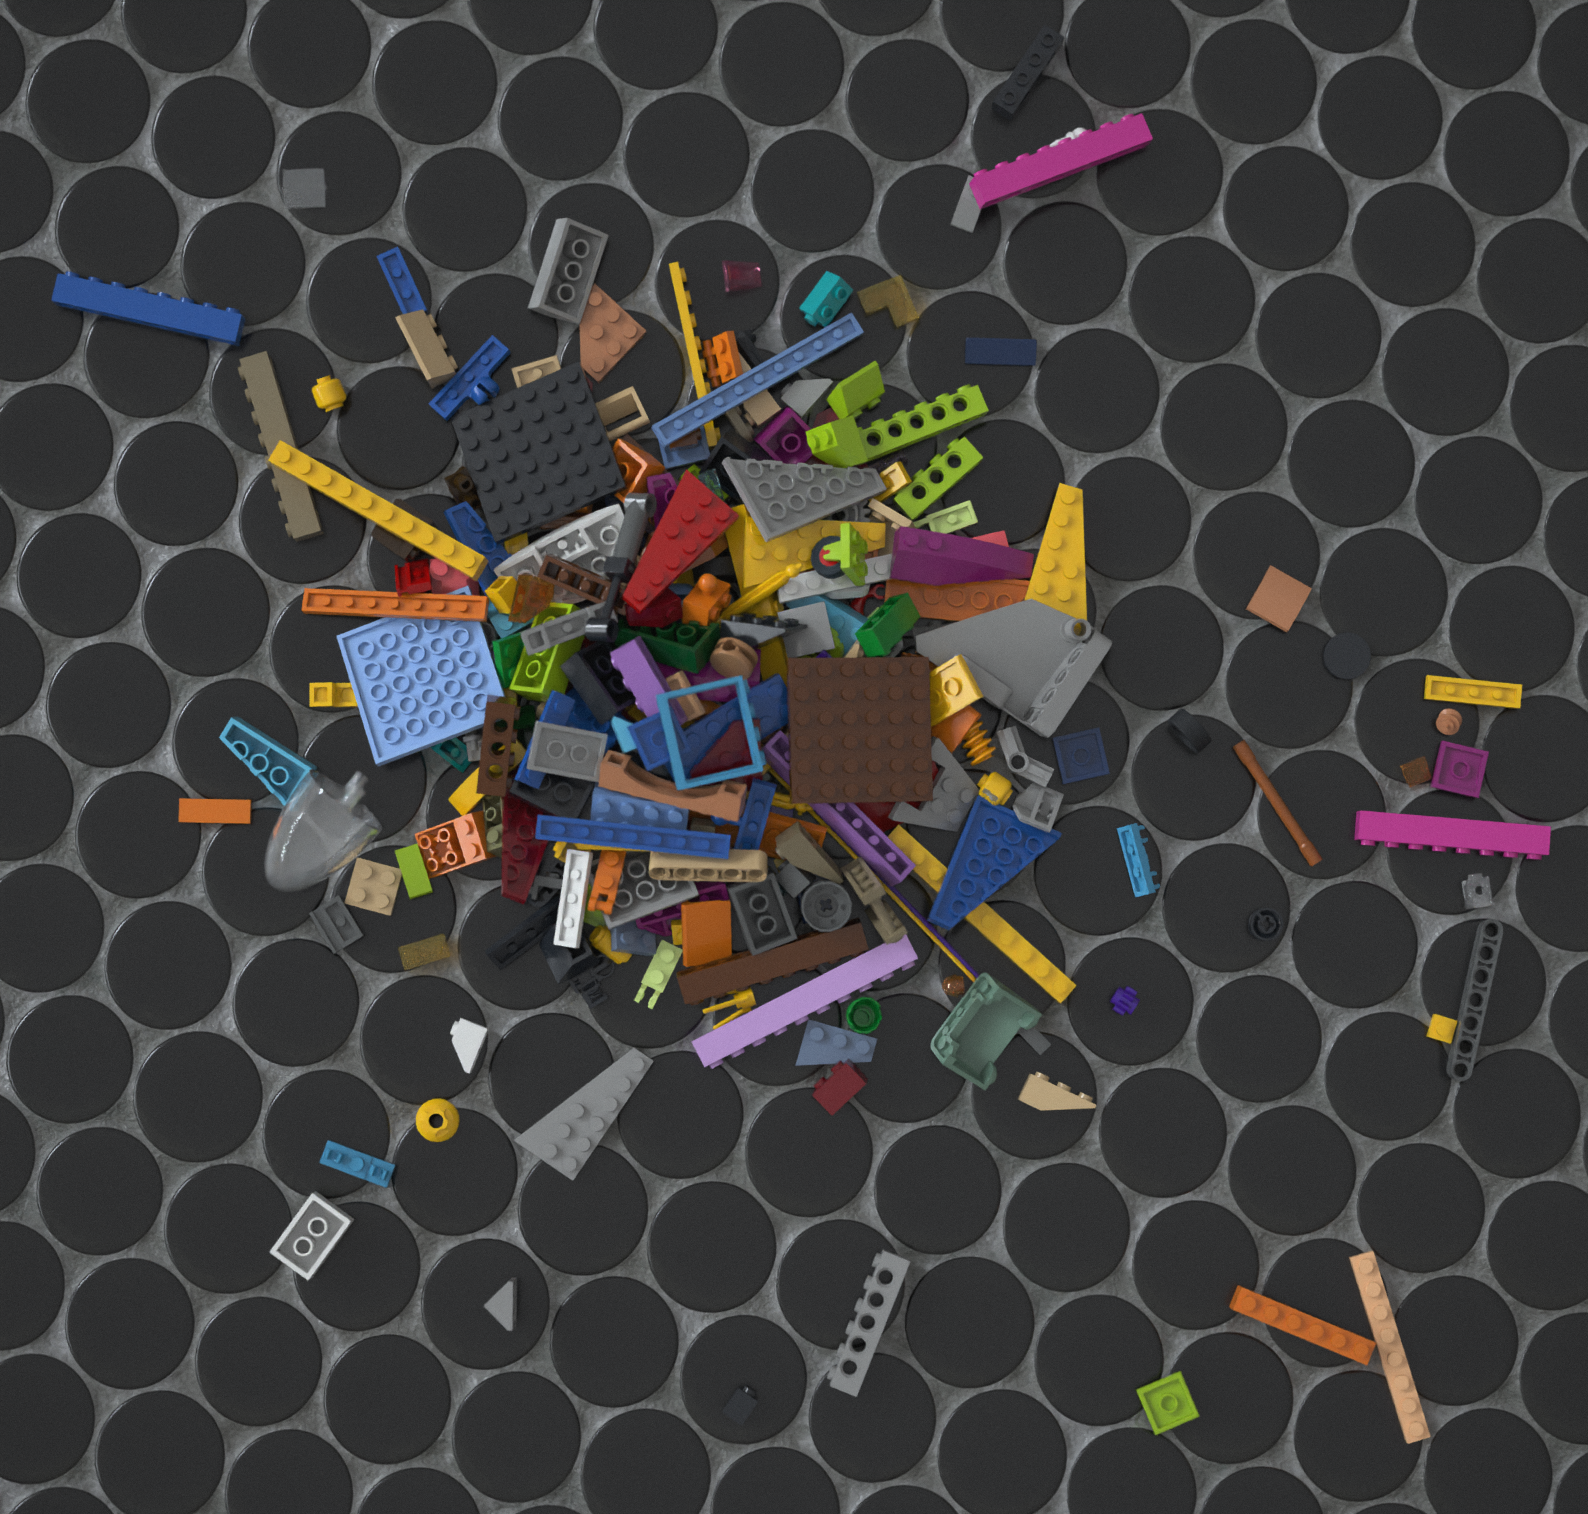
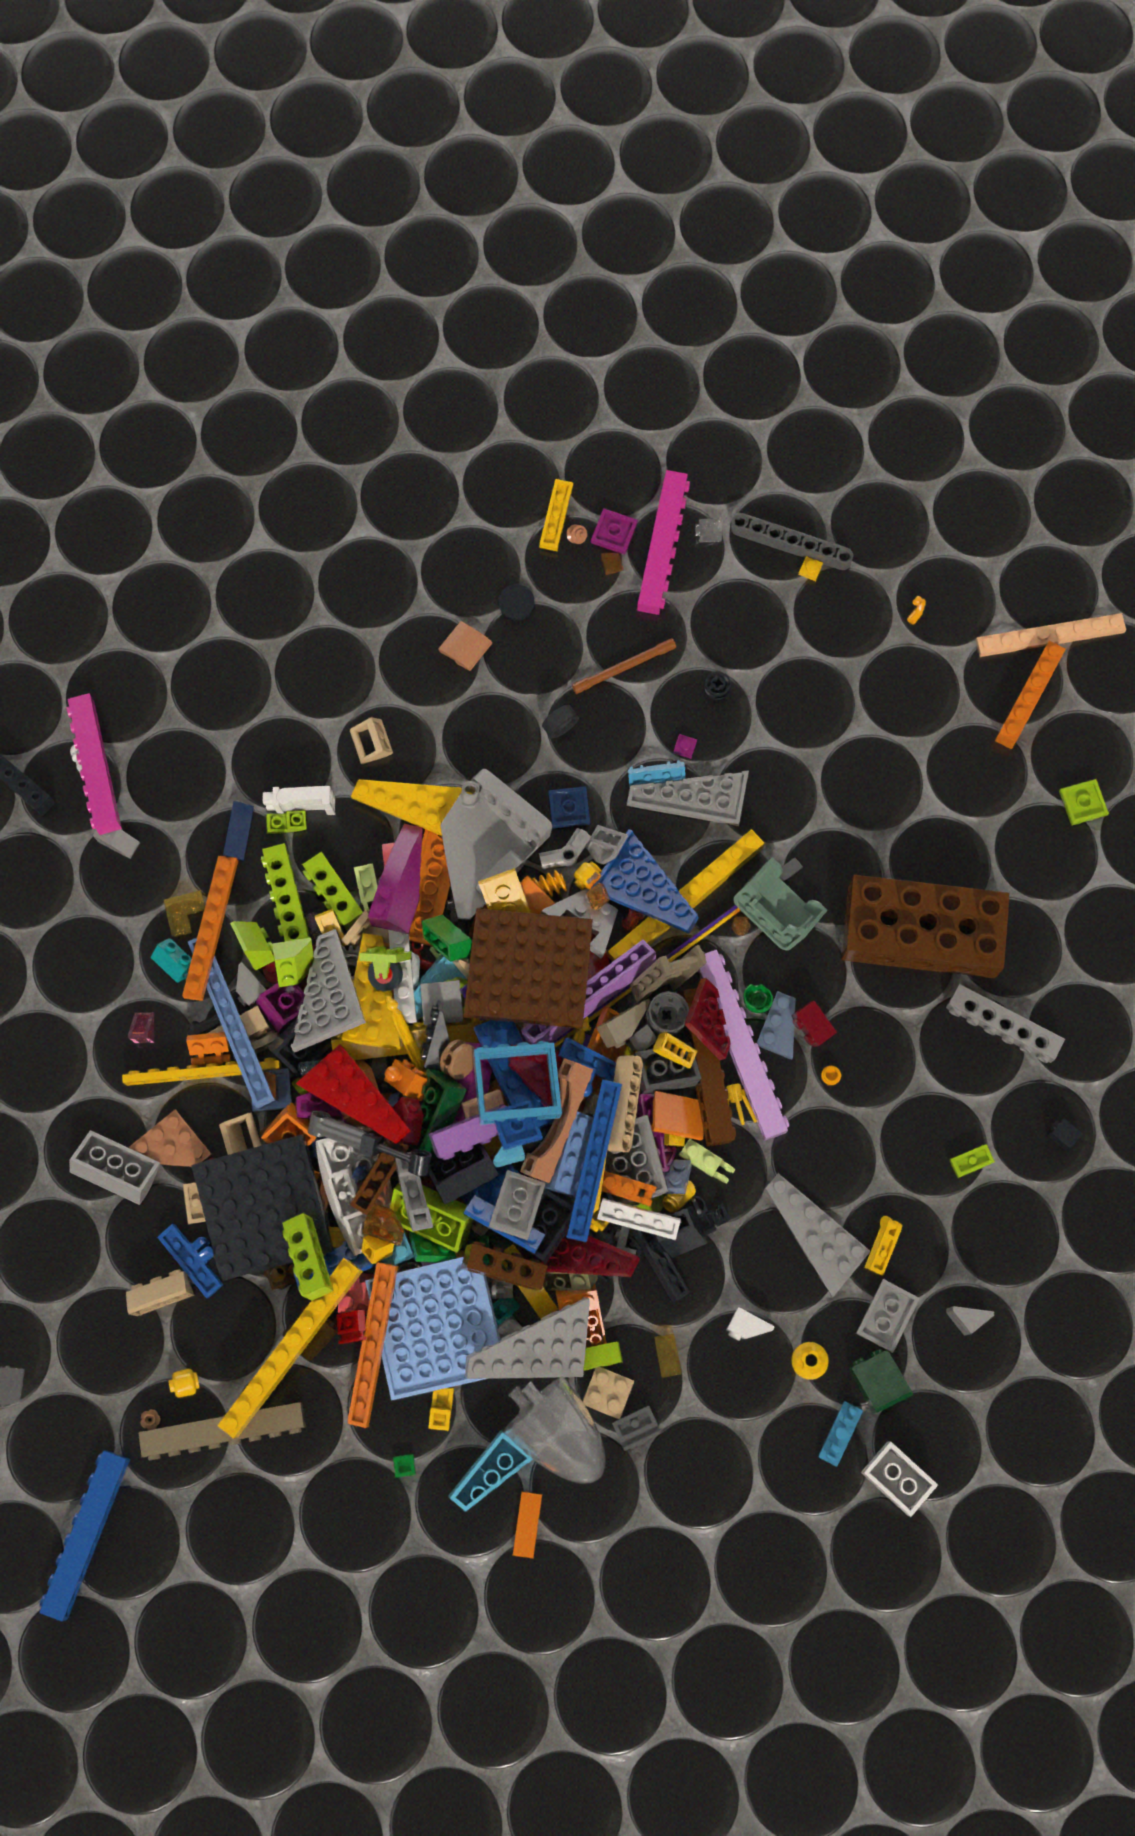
camera: 80 degrees left, 10 degrees down
(265, 661) = (404, 1465): none -> green tile
(290, 361) = (155, 1419): none -> medium nougat plate
(401, 281) = (99, 1310): blue plate -> none
(408, 804) = (537, 1351): none -> light grey wing
(420, 1204) = (880, 1381): none -> dark green slope
(495, 515) = (320, 1282): none -> lime brick
(499, 1207) = (887, 1316): none -> light grey plate
(581, 1195) = (883, 1245): none -> yellow plate
(588, 561) = (360, 1173): none -> dark blue plate
(695, 1294) = (972, 1161): none -> lime plate
(780, 1114) = (831, 1075): none -> light orange plate
(787, 905) = (663, 1045): none -> yellow slope
(825, 955) = (707, 1020): none -> dark red plate
(871, 337) = (210, 928): none -> orange plate
(943, 850) = (632, 919): none -> clear red bush
(965, 804) = (598, 896): none -> clear orange plate
(1003, 1232) = (912, 946): none -> reddish brown brick
(1019, 408) = (286, 822): none -> lime slope
(1045, 410) = (300, 799): none -> white hips
(1047, 1096) = (836, 864): tan slope -> none
(1113, 918) = (702, 798): none -> light grey wing
(1124, 1000) = (766, 796): dark purple gear -> none
(1142, 506) = (378, 737): none -> tan tile
(1180, 892) = (685, 746): none -> magenta plate
(1399, 1172) = (917, 612): none -> light orange arm

